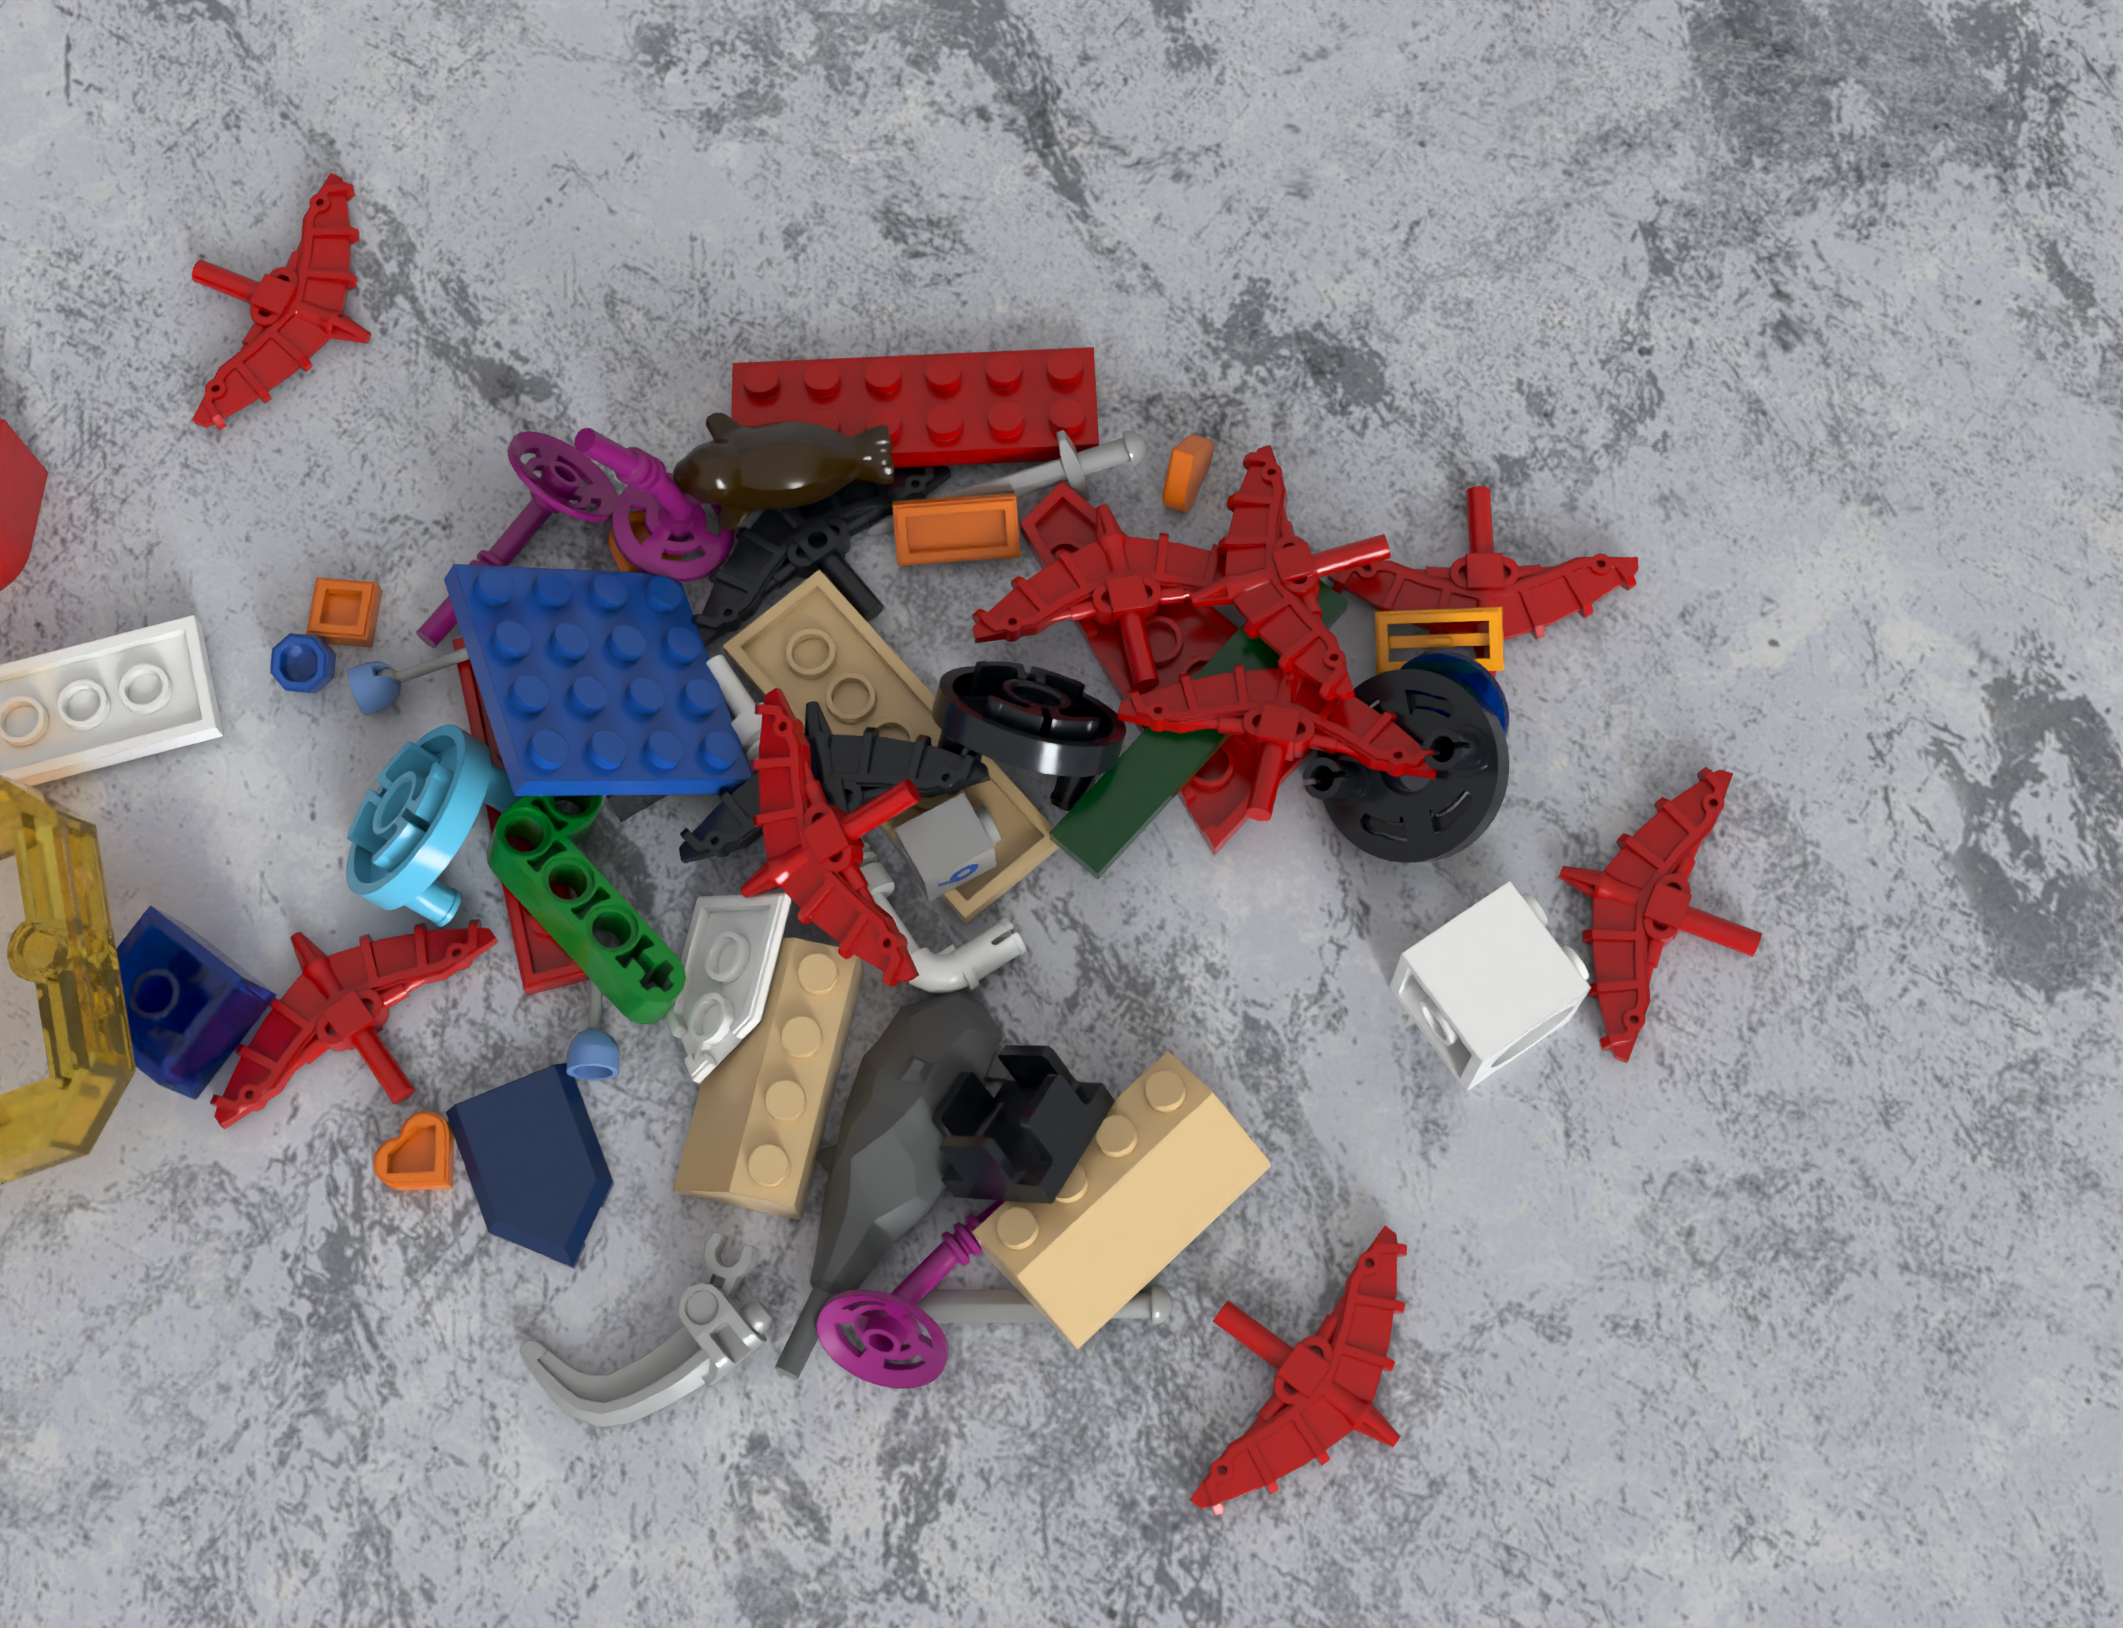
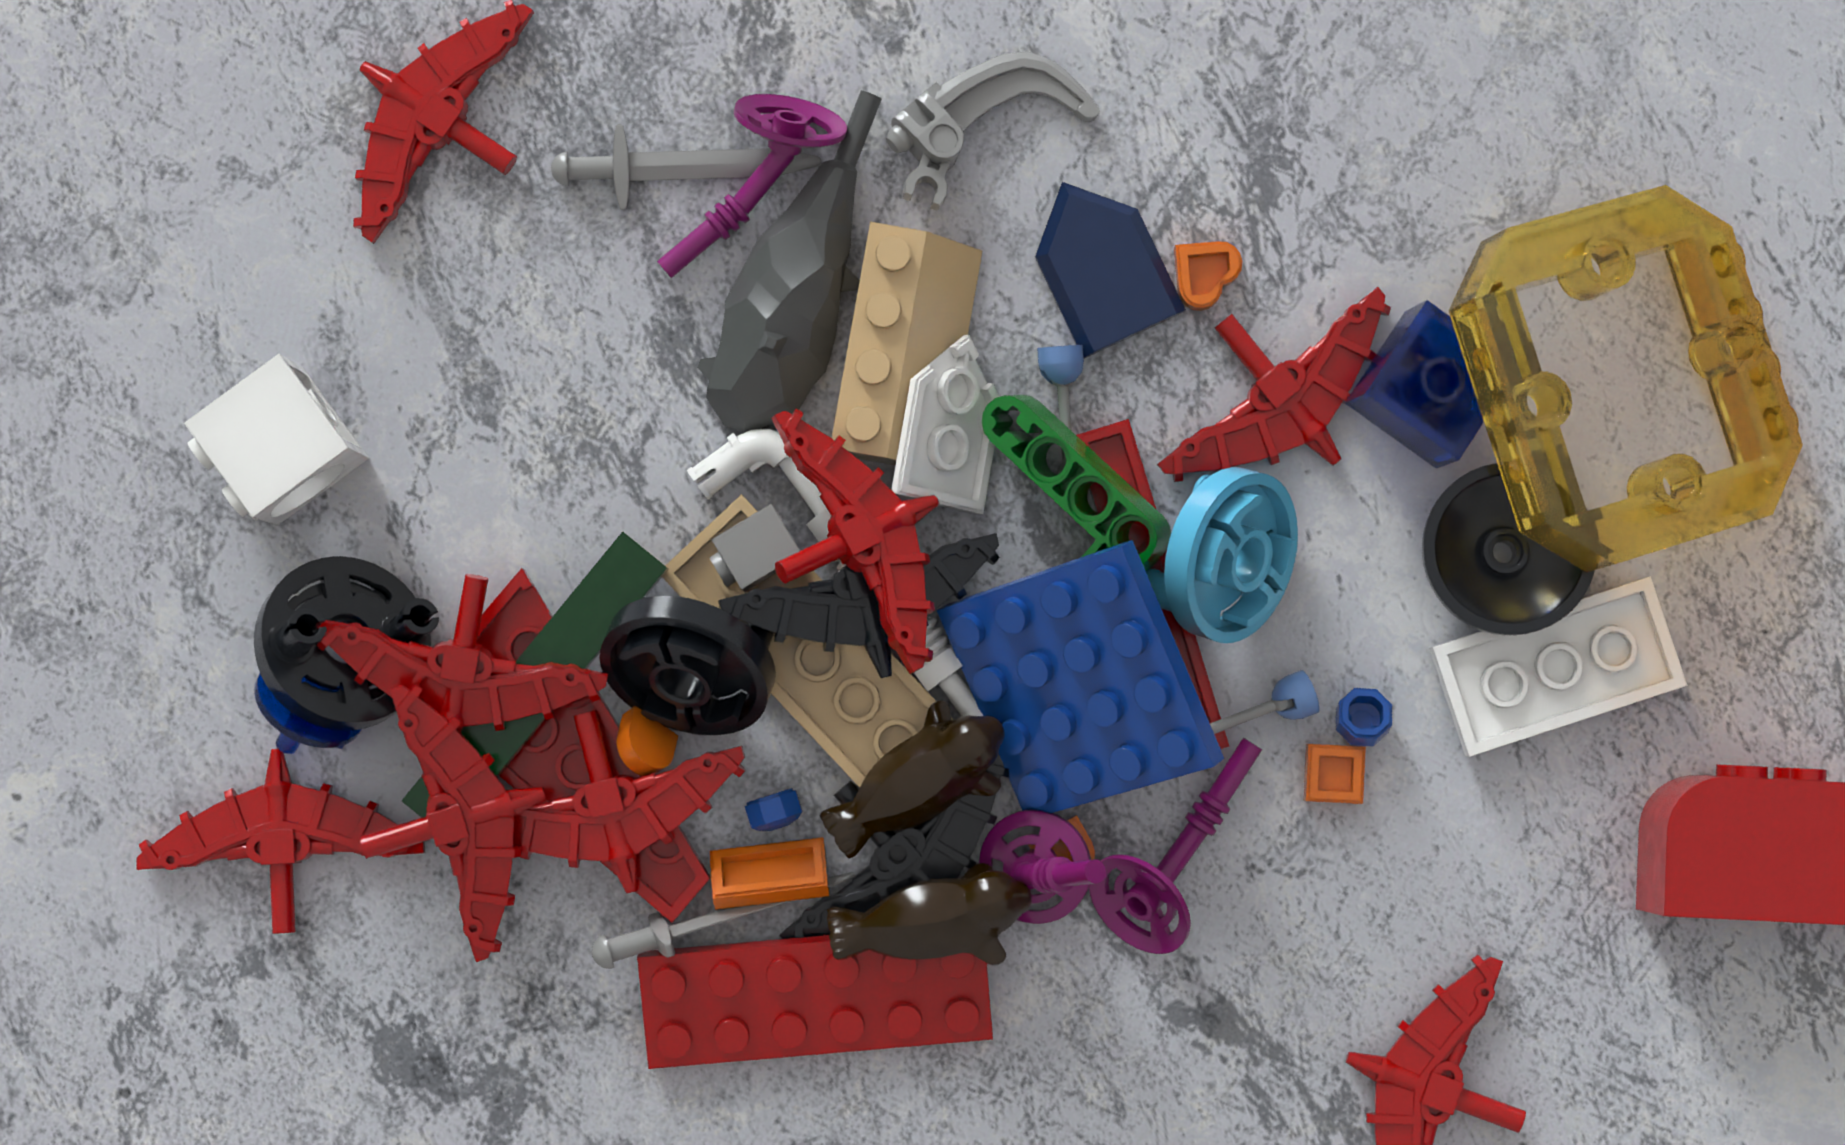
camera: 175 degrees right, 15 degrees up
(140, 779) = (1475, 587): none -> black dish
(785, 607) = (920, 778): none -> dark brown animal
(948, 591) = (774, 810): none -> blue tile
(1025, 1136) = (679, 294): black panel -> none
(1084, 655) = (644, 743): none -> orange tile
(1133, 1202) = (592, 245): tan slope -> none
(1186, 472) = (555, 940): orange tile -> none
(1493, 638) = (319, 795): light orange tile -> none
(1644, 904) = (139, 538): red bar -> none

